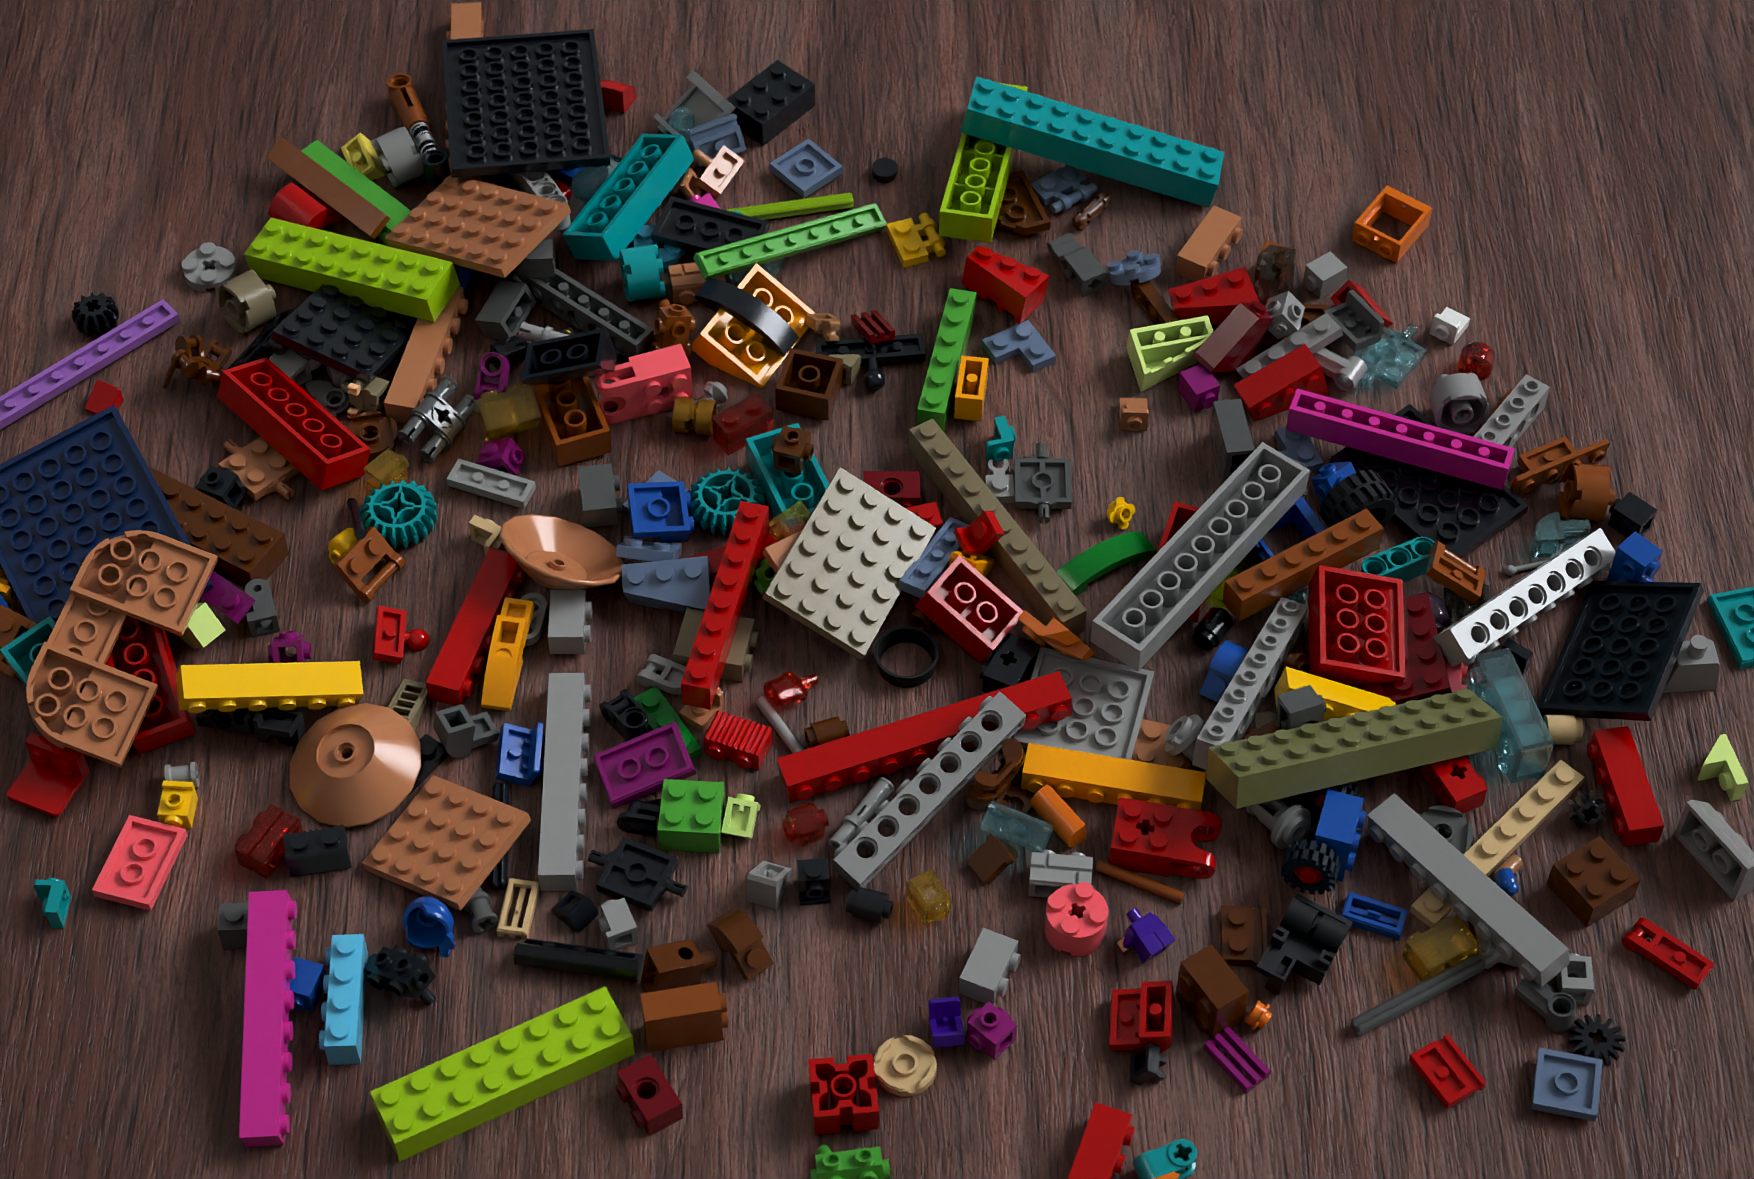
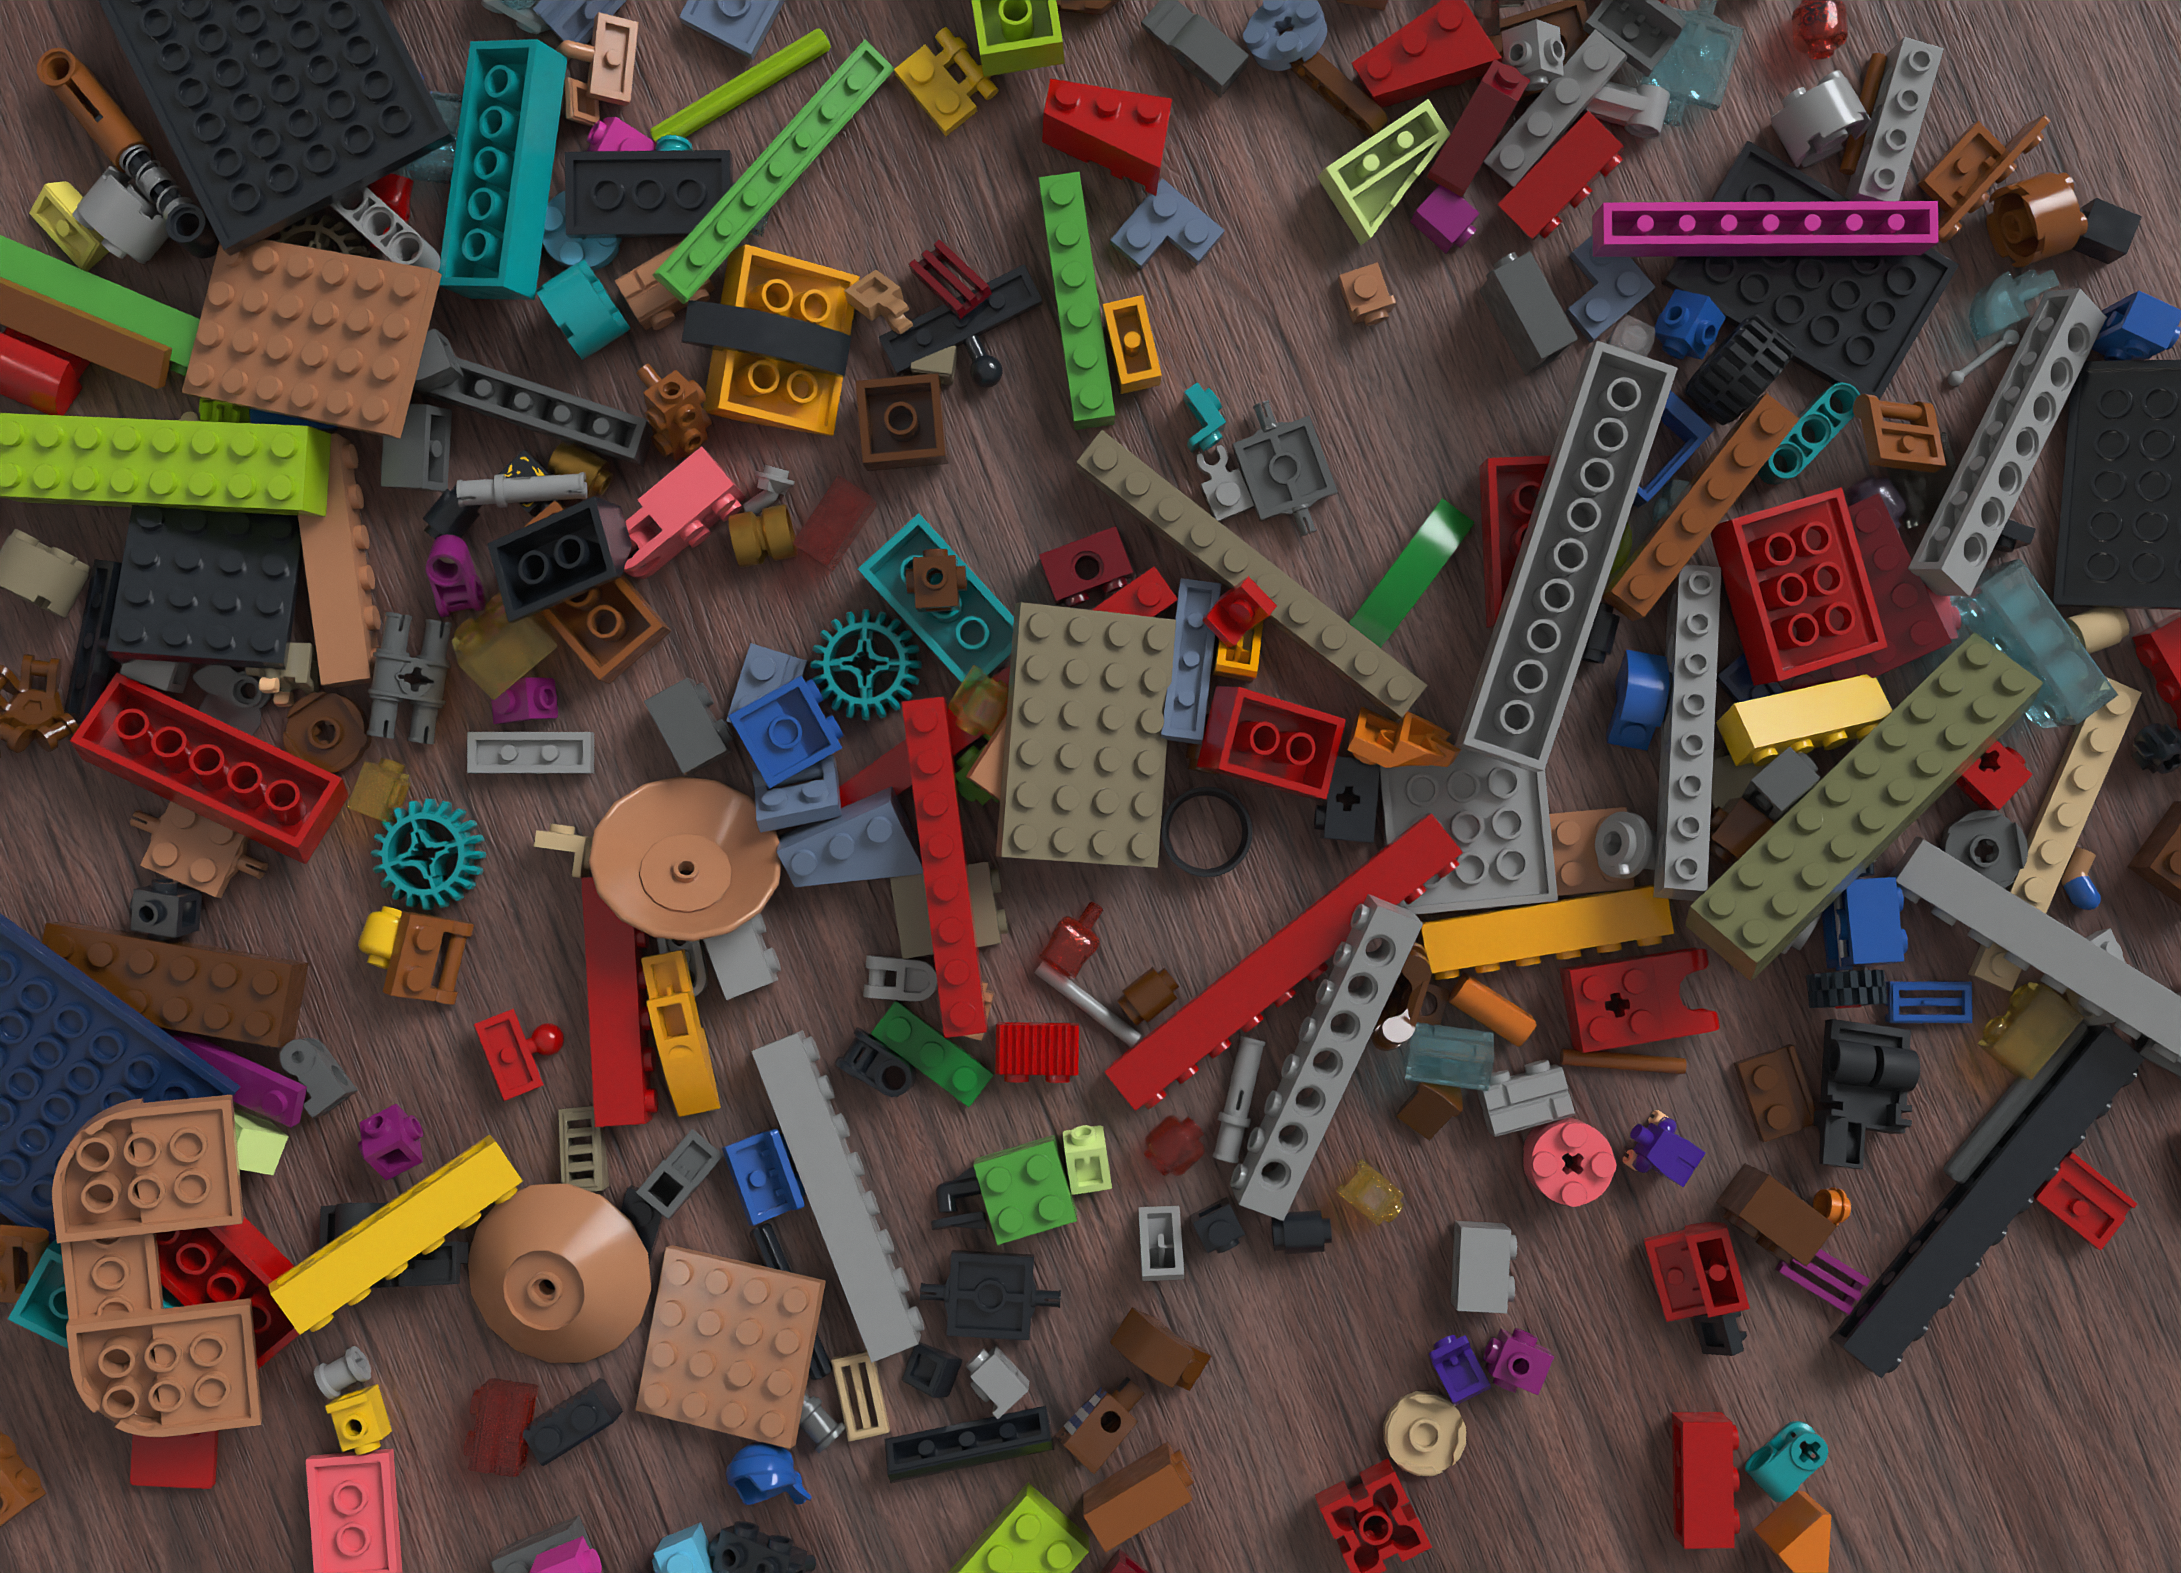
camera: 25 degrees left, 35 degrees up
(356, 518) = (376, 895): black bar -> none
(643, 764) = (932, 1132): magenta tile -> none
(1120, 512) = (1408, 483): yellow plate -> none
(1297, 661) = (1732, 670): reddish brown plate -> none
(1371, 1046) = (1981, 1208): none -> black brick

